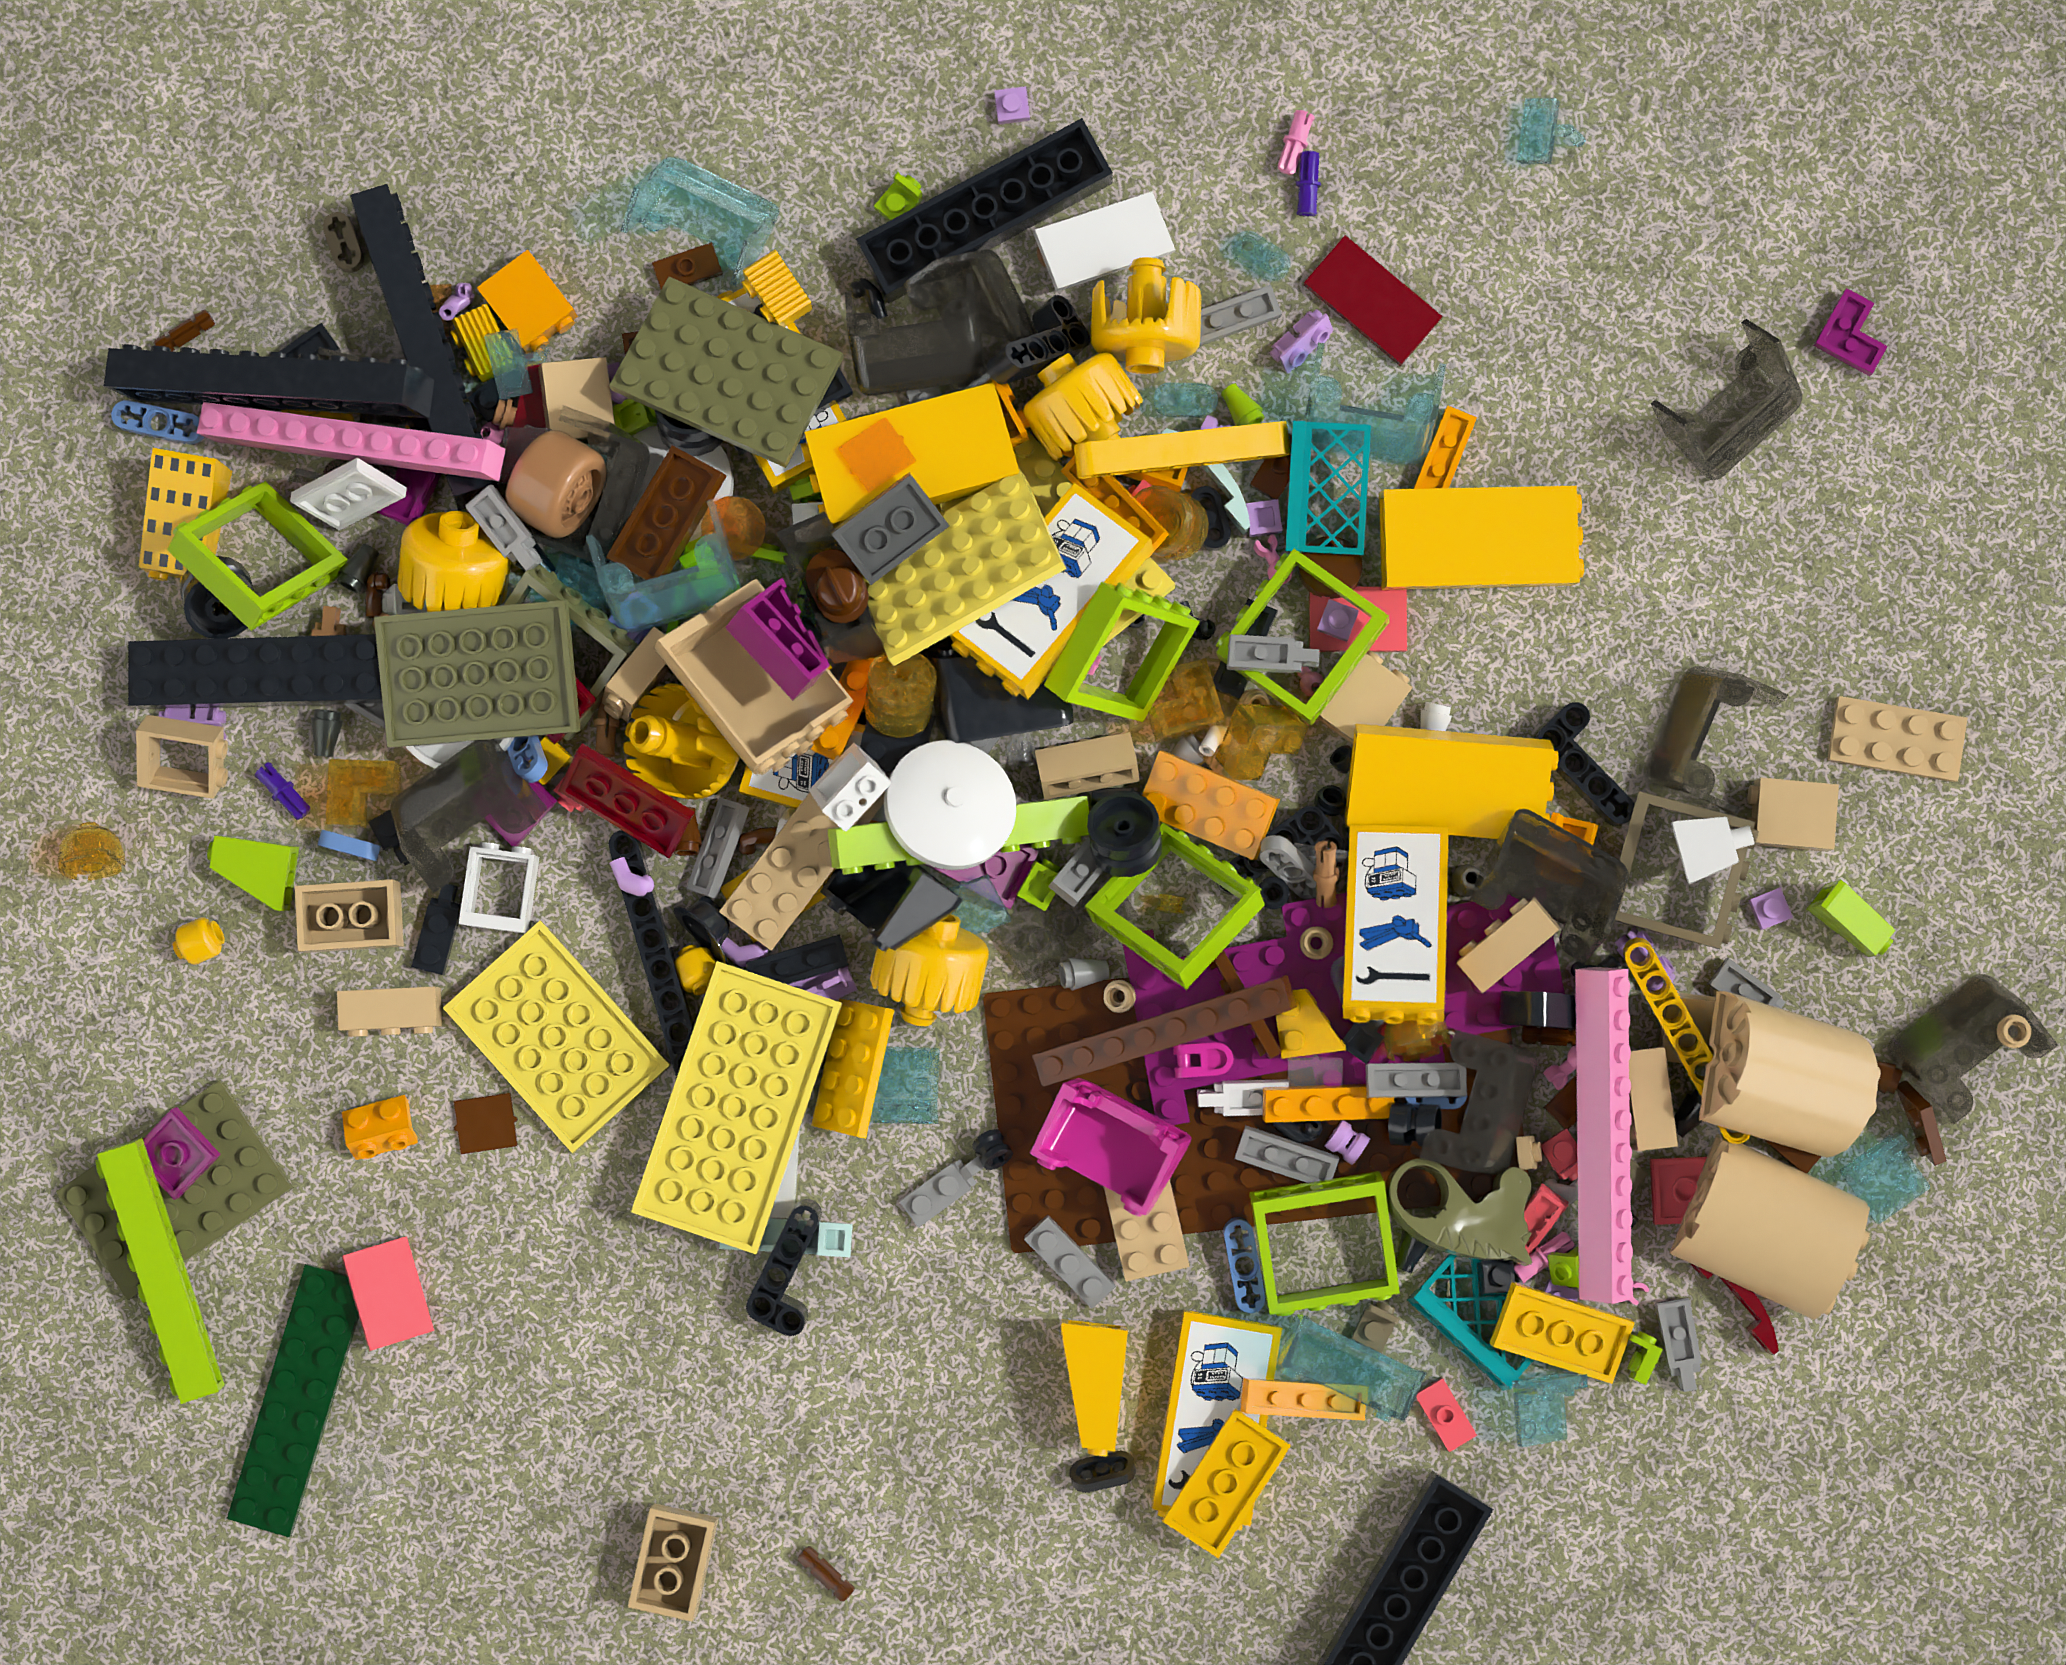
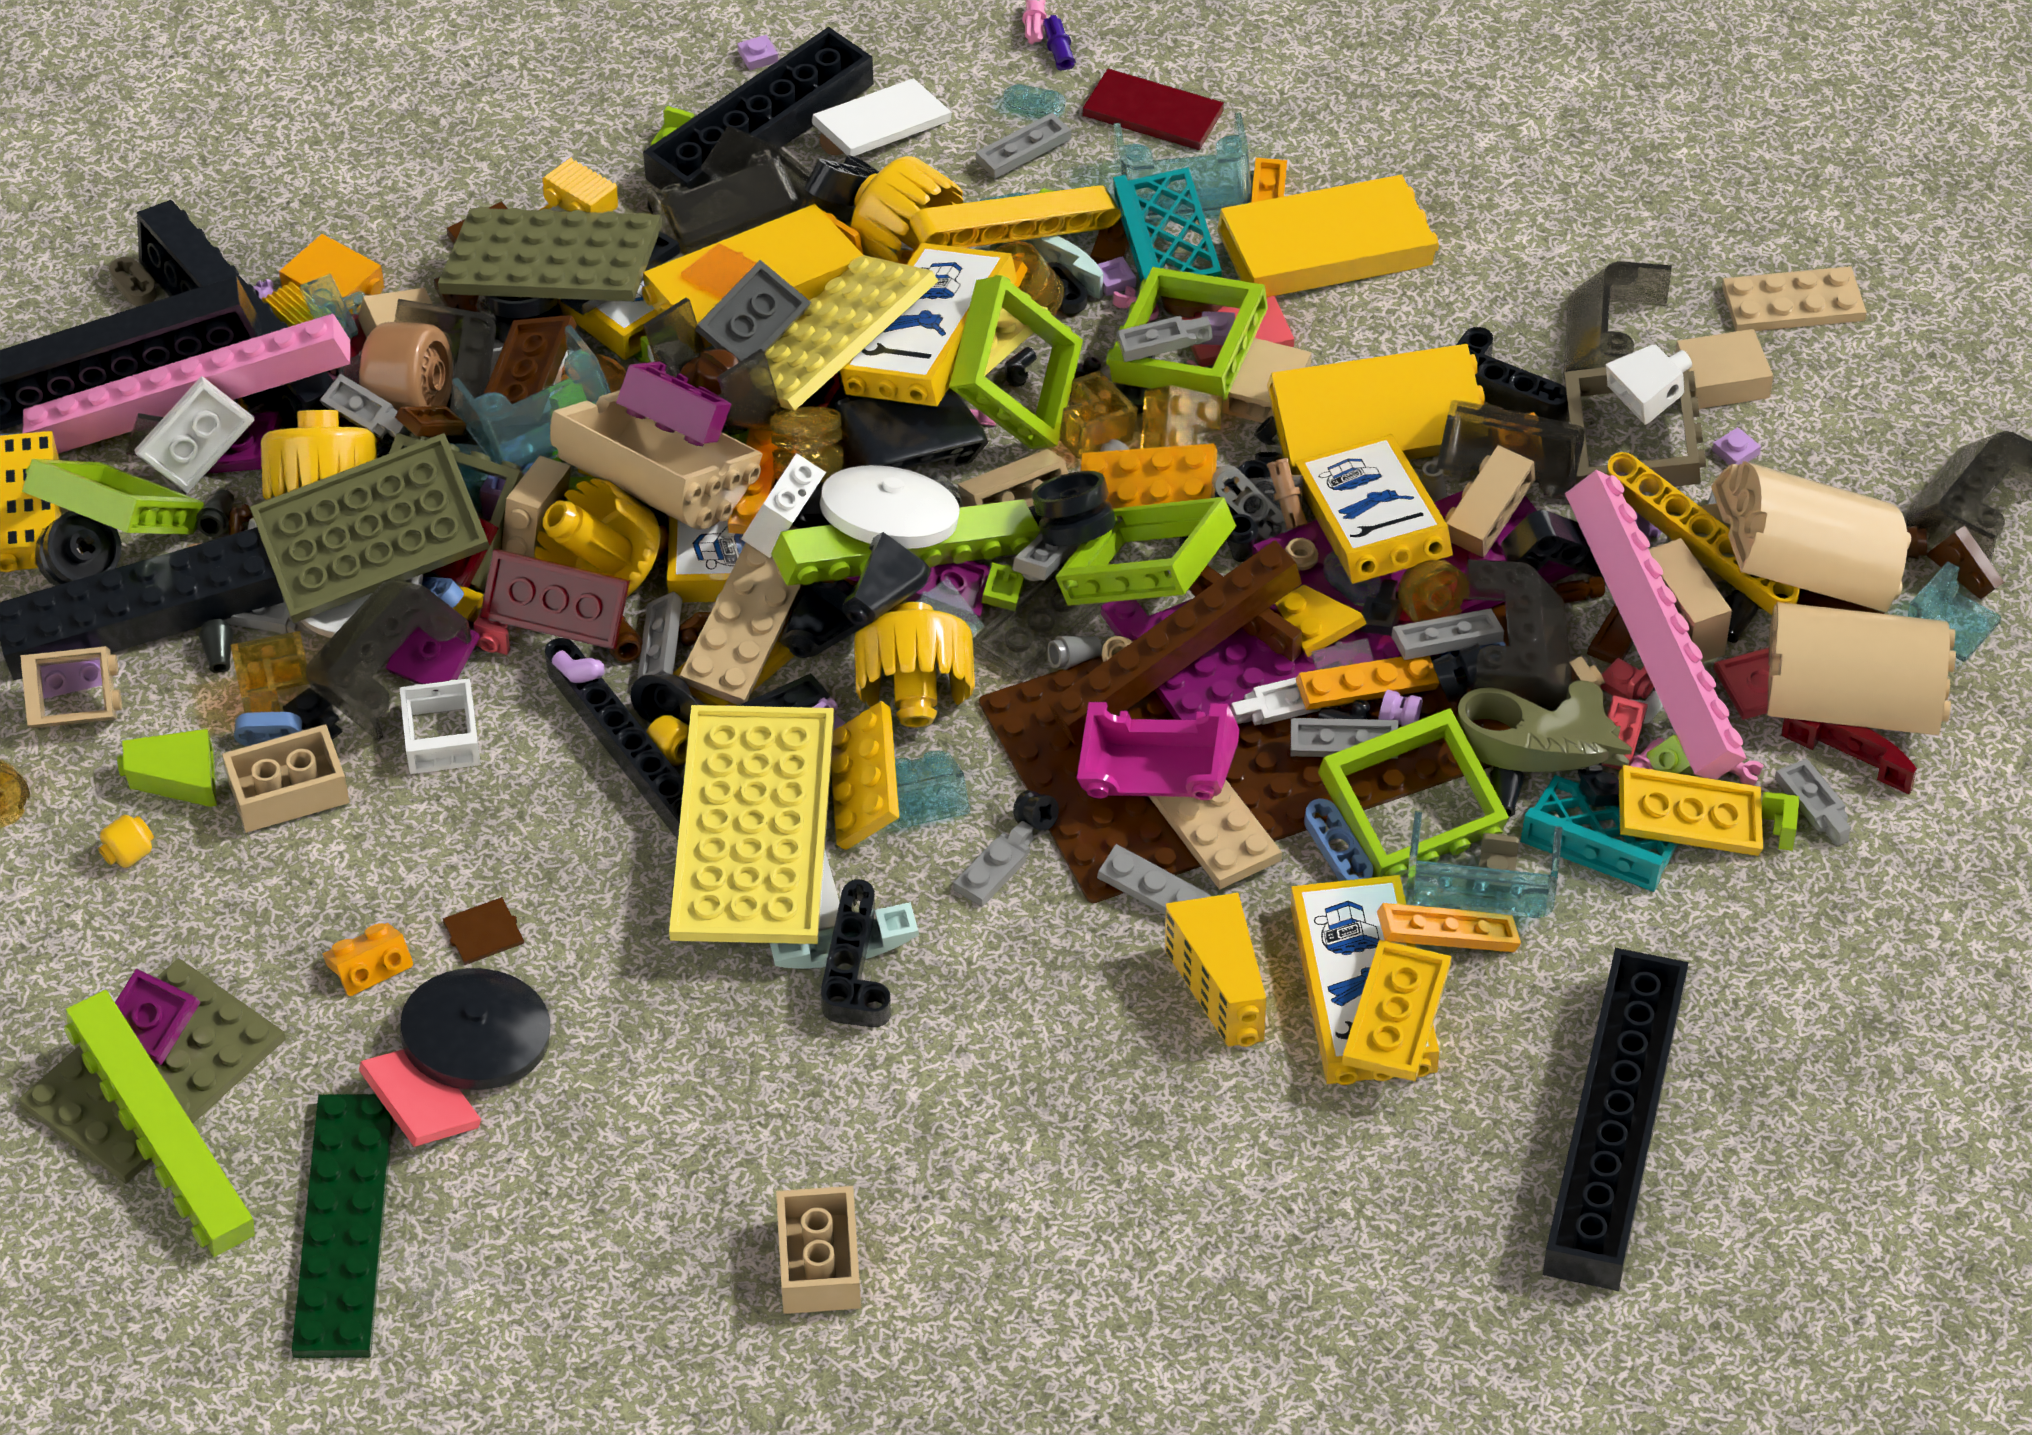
camera: 20 degrees left, 35 degrees down
(282, 791) = (183, 703): dark purple axle -> none
(389, 1010) = (350, 850): tan brick -> none
(438, 932) = (383, 781): black hinge -> none
(450, 1236) = (475, 1028): none -> black dish
(556, 1036) = (539, 834): light yellow plate -> none
(561, 560) = (430, 420): none -> reddish brown plate
(703, 207) = (479, 178): clear light blue windscreen -> none
(825, 1573) = (993, 1230): reddish brown axle -> none
(1102, 1471) = (1272, 1052): black plate -> none
(1149, 328) = (956, 143): yellow piece -> none
(1212, 740) = (1132, 437): white arm -> none
(1214, 1059) = (1235, 668): dark pink plate -> none
(1294, 350) = (1098, 149): lavender hinge -> none
(1445, 1414) = (1603, 922): coral plate -> none
(1541, 1406) = (1691, 863): clear light blue bracket -> none
(1558, 1074) = (1601, 601): bright pink arm -> none
(1742, 413) = (1544, 97): clear smoke windscreen -> none
(1843, 337) = (1601, 37): magenta plate -> none
(1852, 918) = (1816, 425): lime slope -> none
(2022, 1026) = (2012, 444): tan plate -> none

